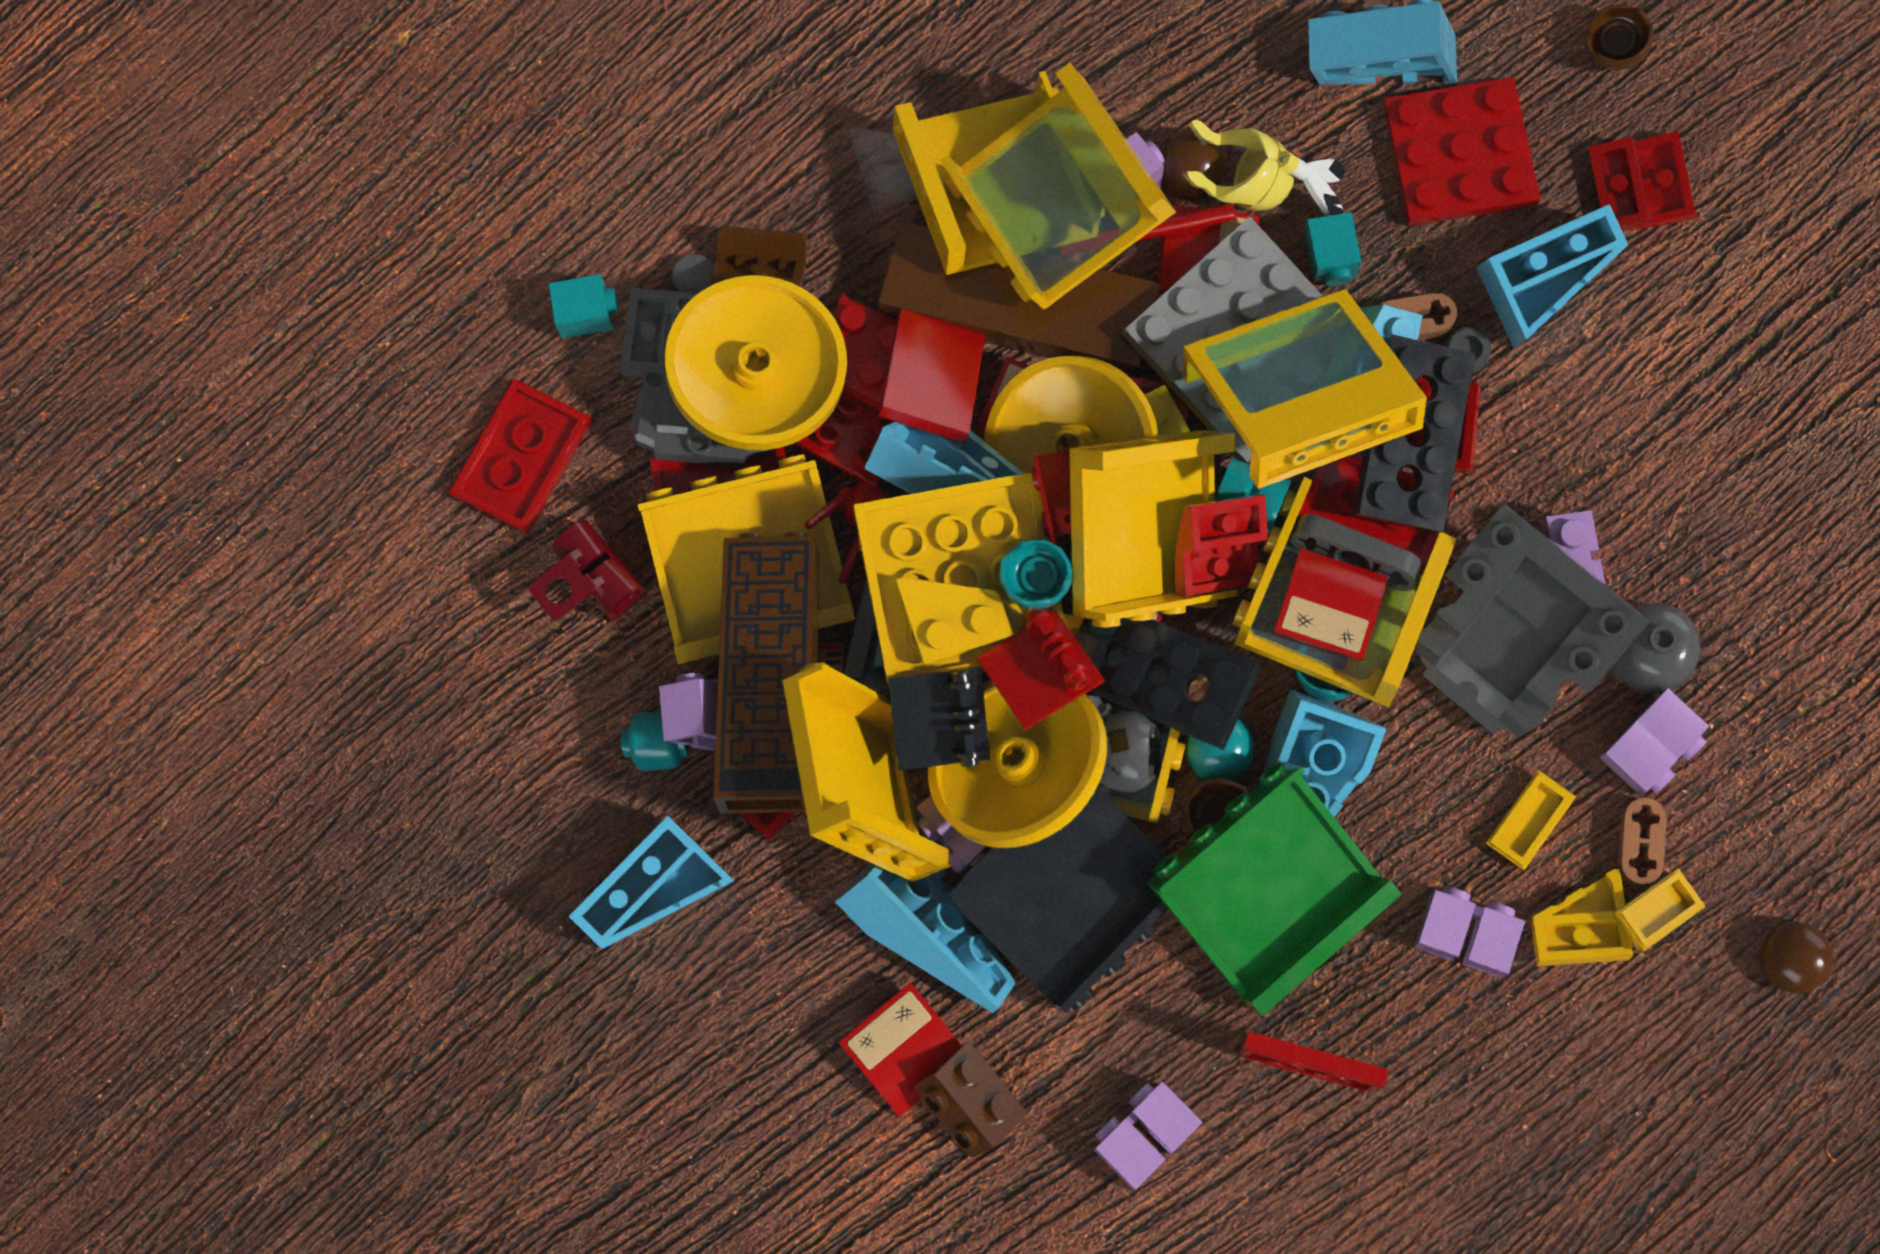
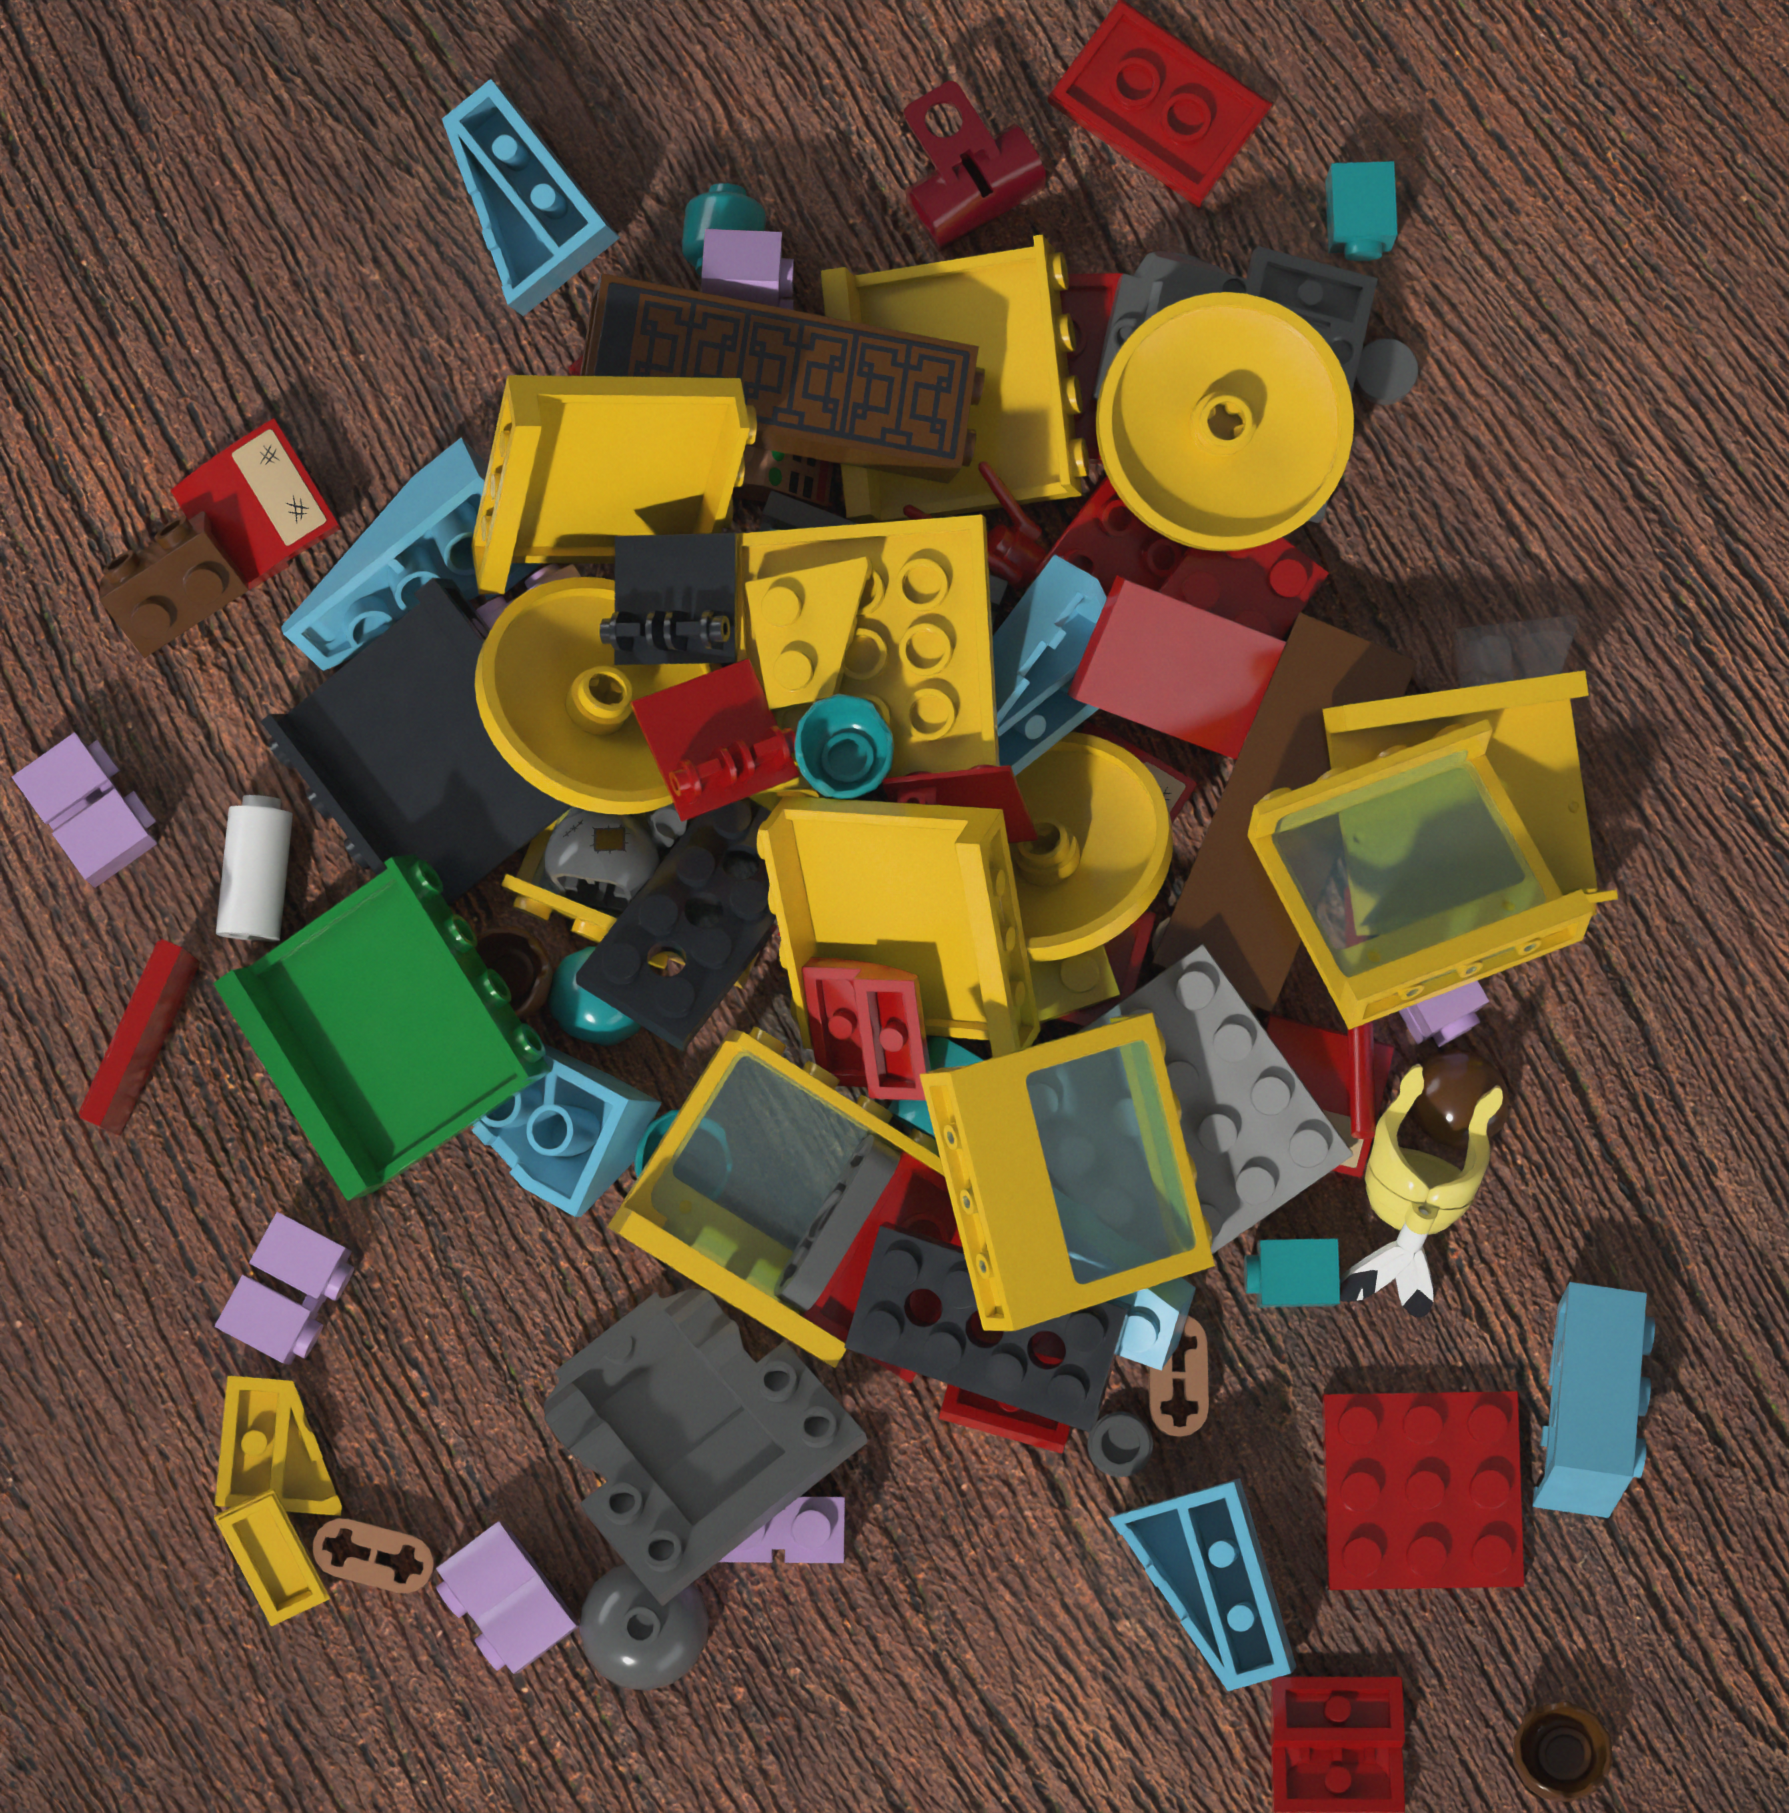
camera: 90 degrees right, 5 degrees up
(760, 253) = (1389, 461): reddish brown bracket -> none
(1172, 1004) = (254, 870): none -> white brick
(1330, 605) = (763, 1170): red slope -> none
(1530, 820) = (429, 1406): yellow tile -> none
(1796, 957) = (181, 1739): reddish brown hair -> none

